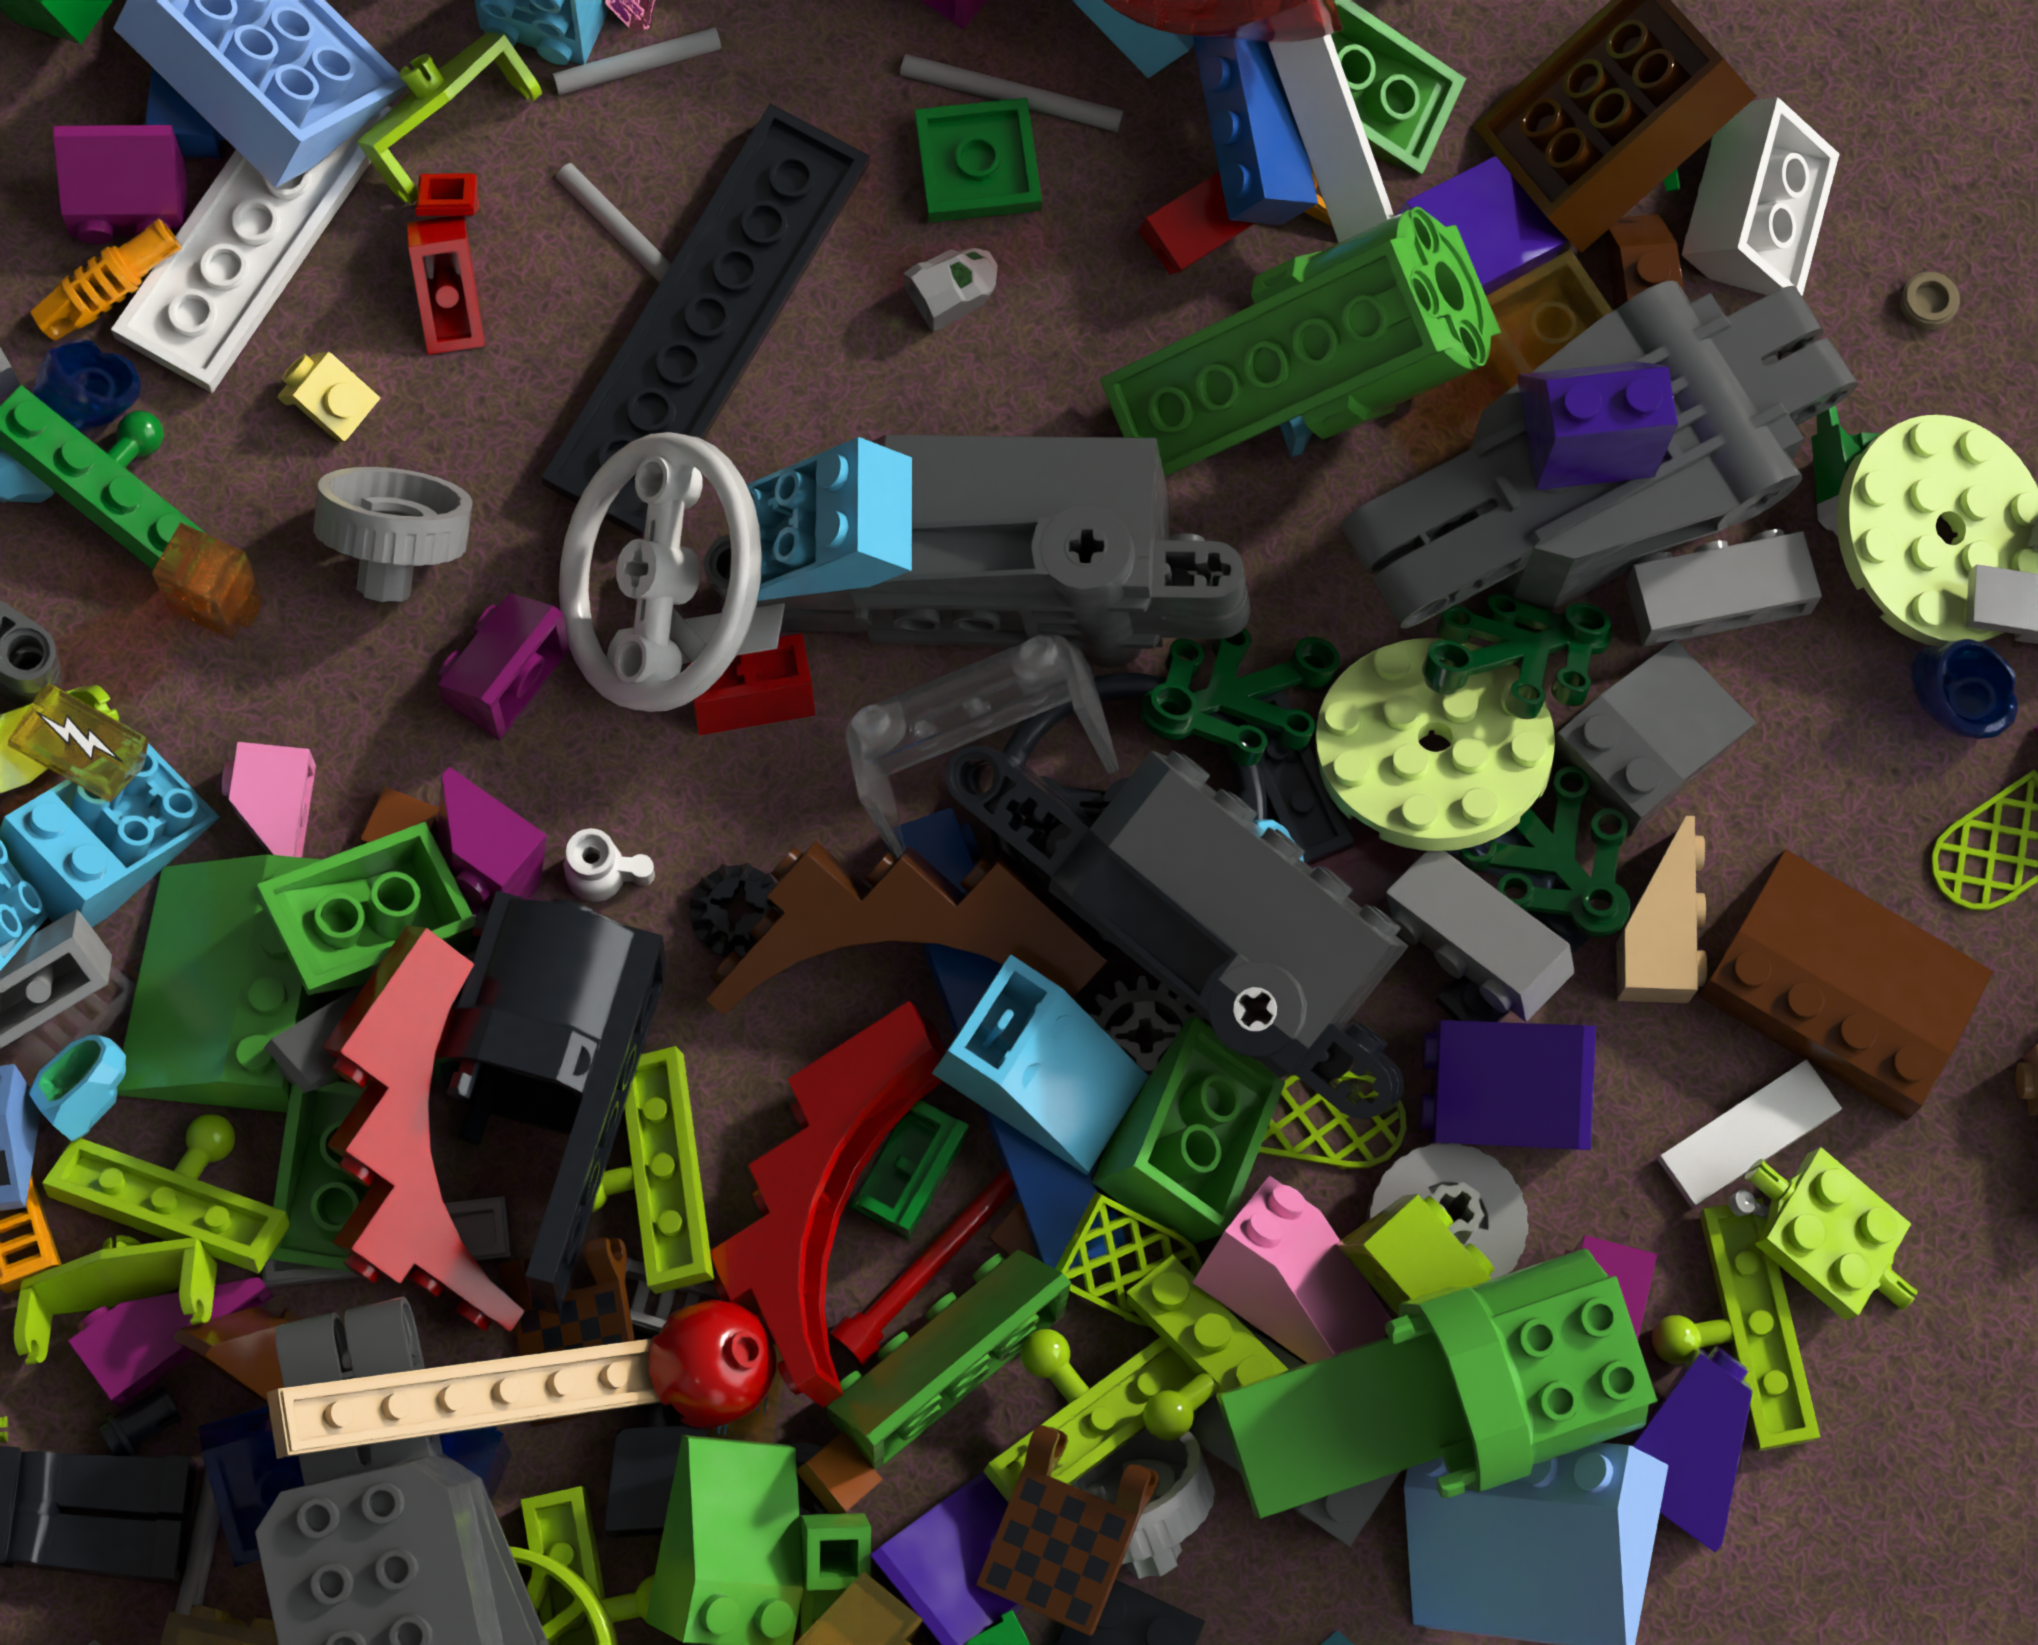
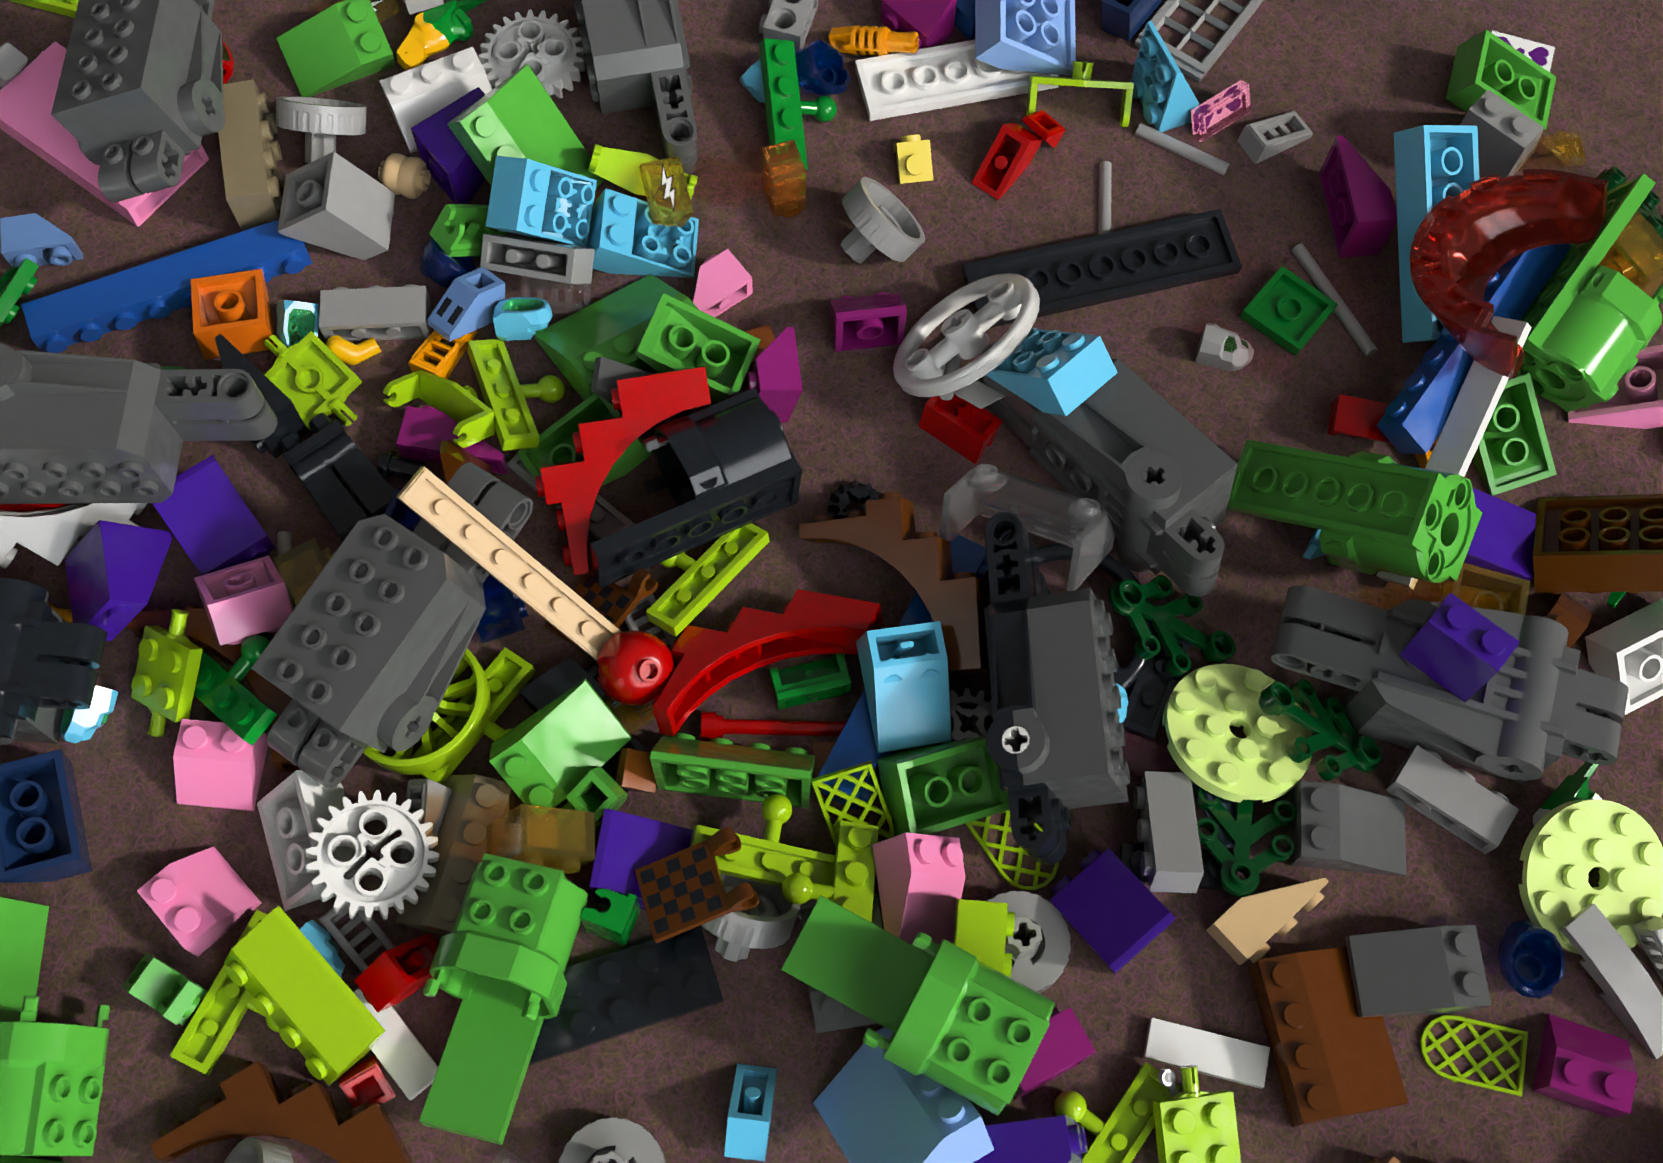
camera: 50 degrees right, 5 degrees down
(597, 869) = (816, 434): white piece -> none
(1872, 820) = (1418, 971): none -> dark grey slope

